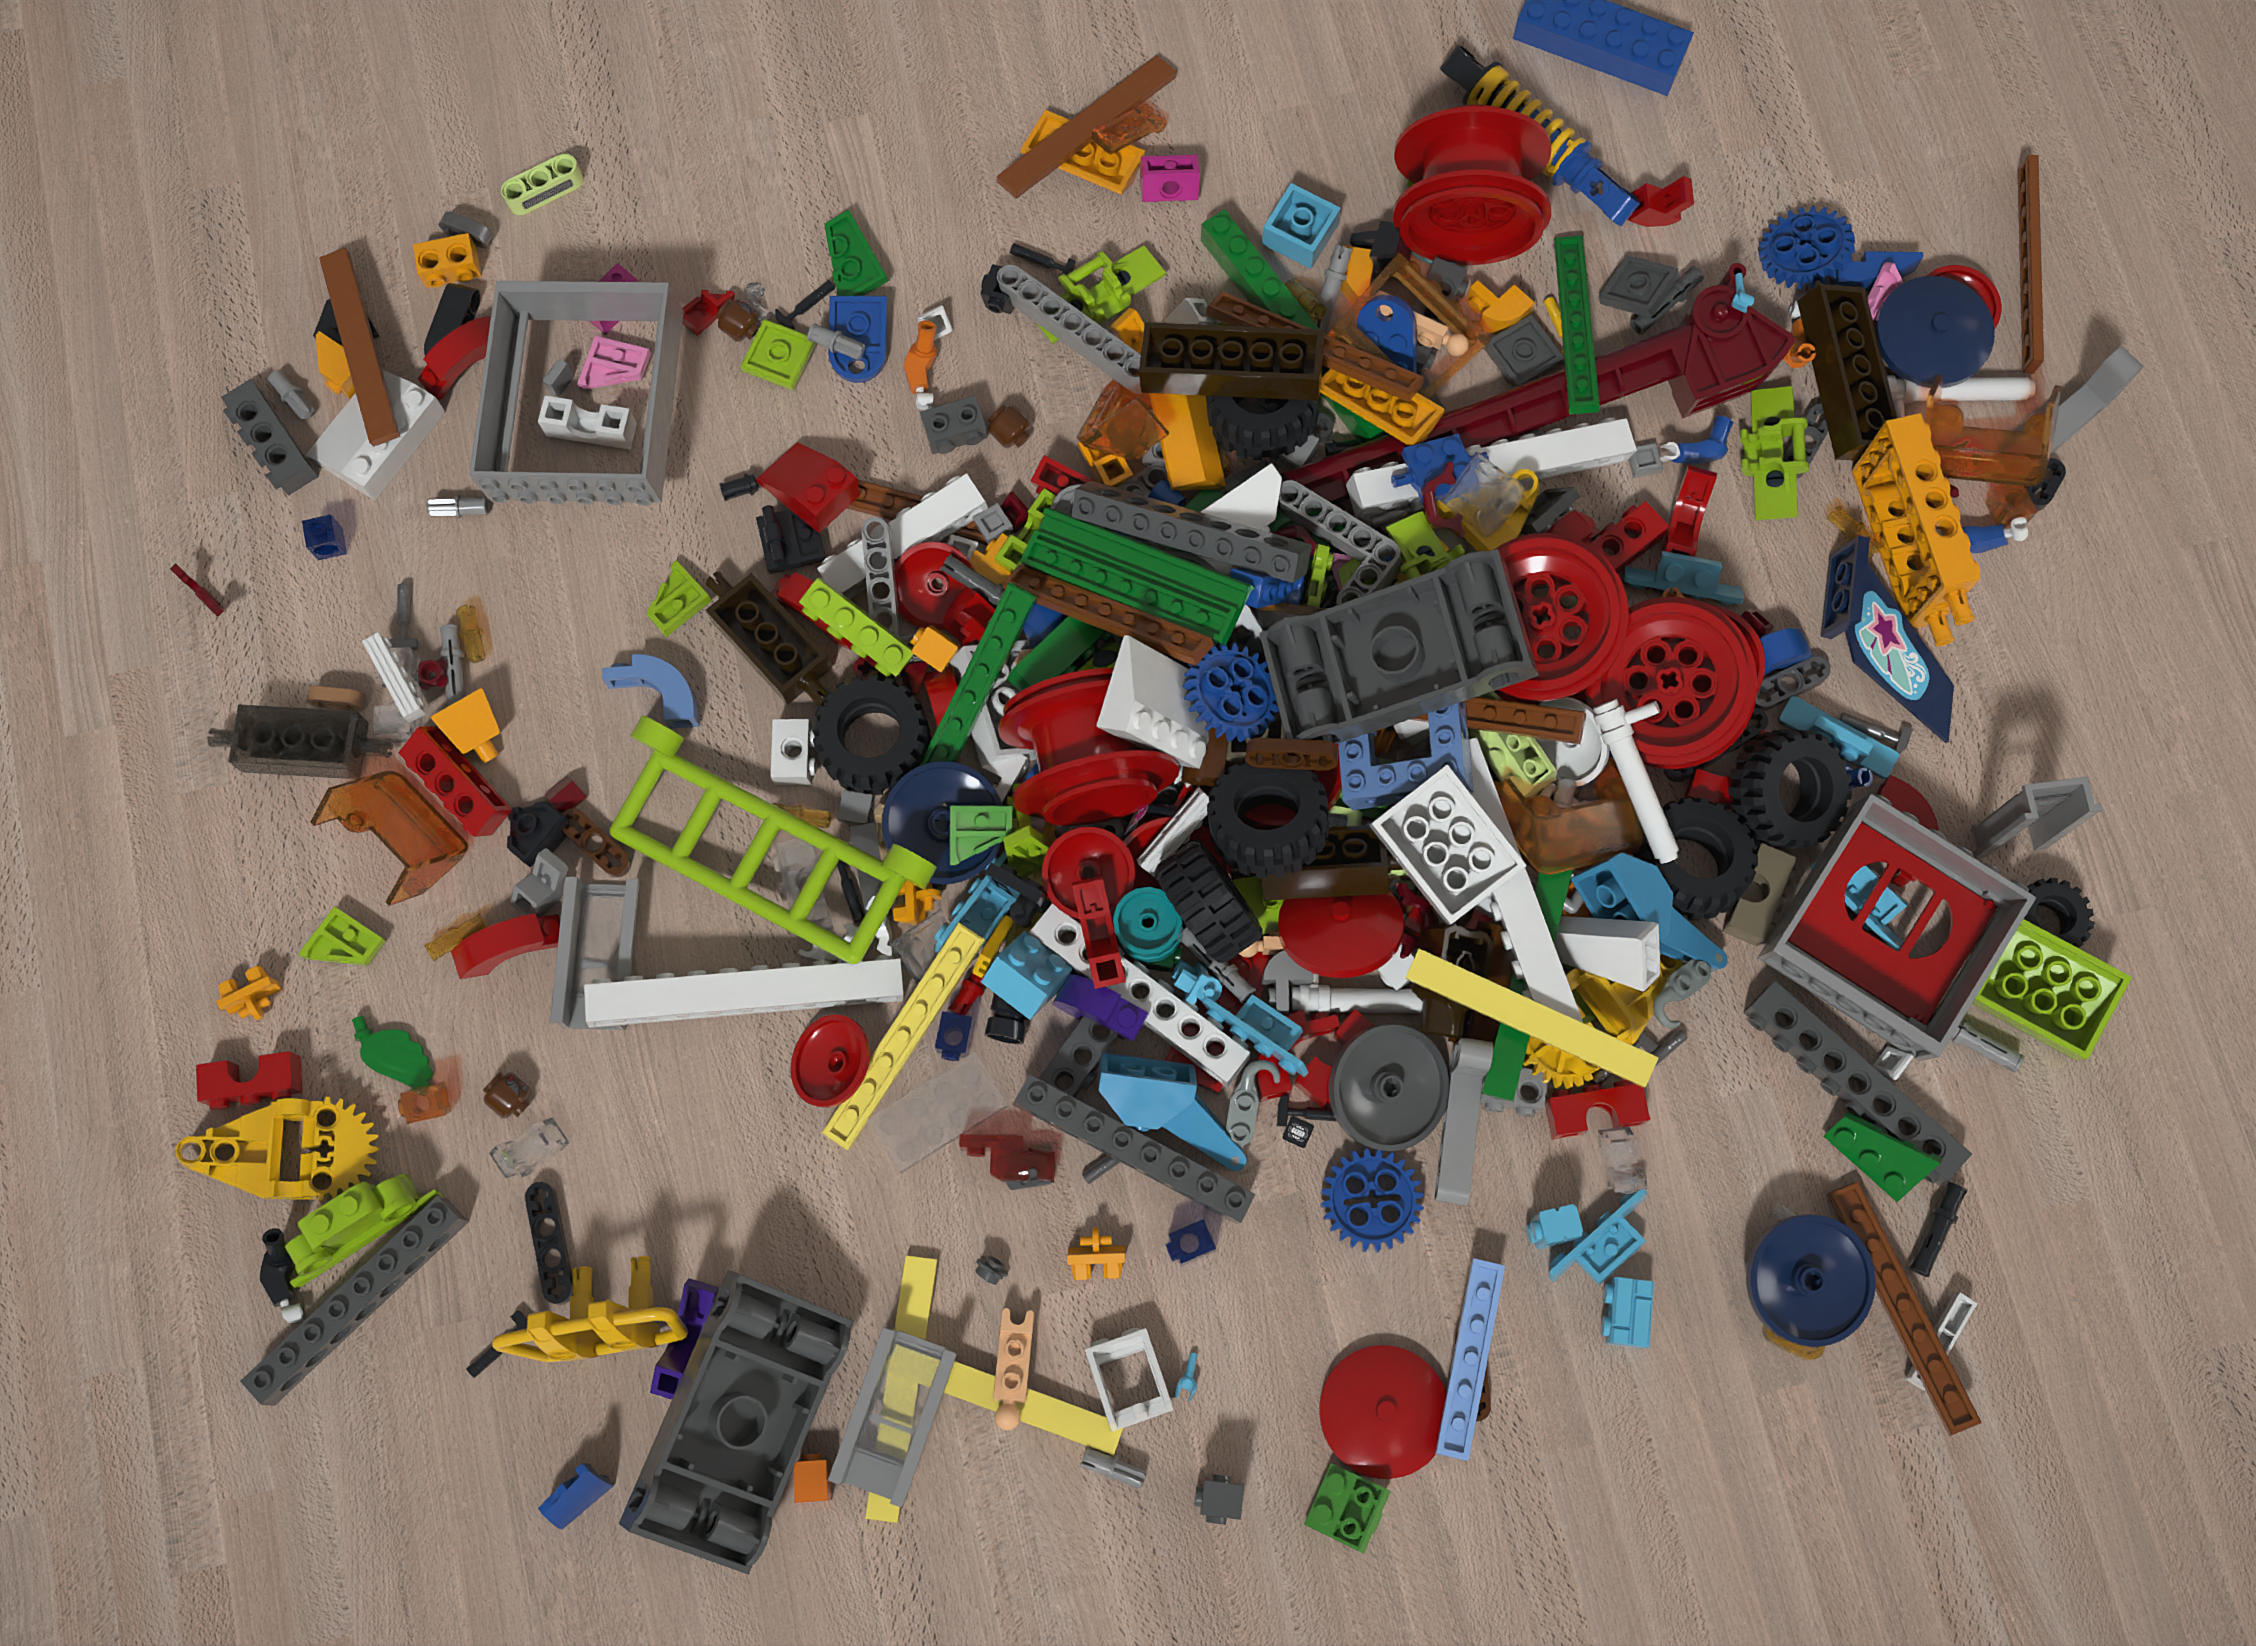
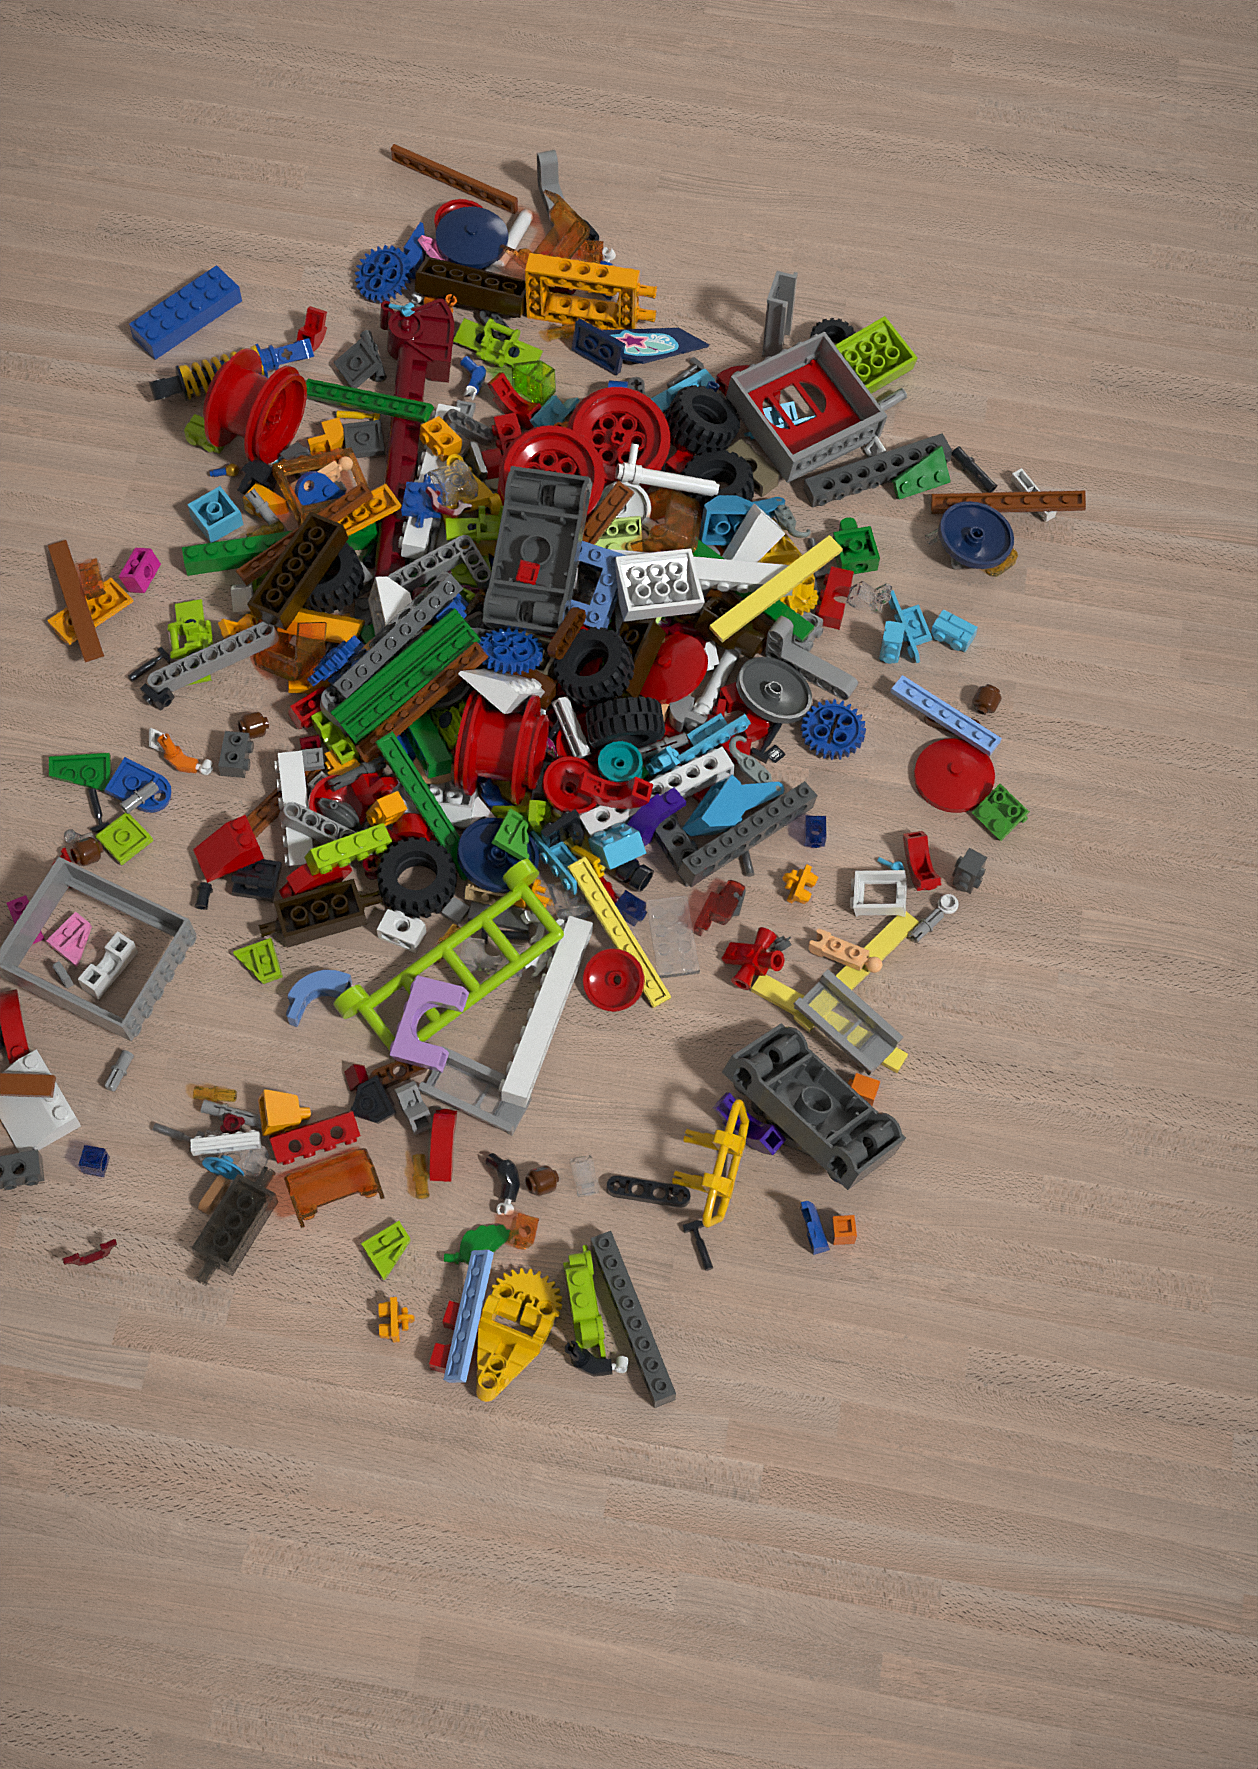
camera: 70 degrees left, 10 degrees down
(267, 1086) = (468, 1316): none -> light blue plate
(367, 690) = (222, 1166): none -> dark azure dish
(492, 1053) = (510, 1182): none -> black arm
(586, 1539) = (844, 1229): none -> orange panel
(618, 836) = (425, 995): none -> lavender arch
(918, 595) = (340, 812): none -> dark grey hat
(945, 1239) = (753, 958): none -> red brick
(1118, 473) = (333, 660): none -> blue gear
(1163, 1486) = (948, 904): none -> white plate
(1204, 1420) = (919, 861): none -> red arch
(1355, 655) = (527, 572): none -> red tile
(1384, 210) = (230, 470): none -> piece
(1533, 1410) = (987, 699): none -> reddish brown head
(1560, 447) = (440, 438): none -> light orange brick
(1613, 452) = (457, 421): none -> flat silver beam
(1695, 1103) = (858, 547): none -> green brick
(1737, 529) = (534, 380): none -> clear neon green slope

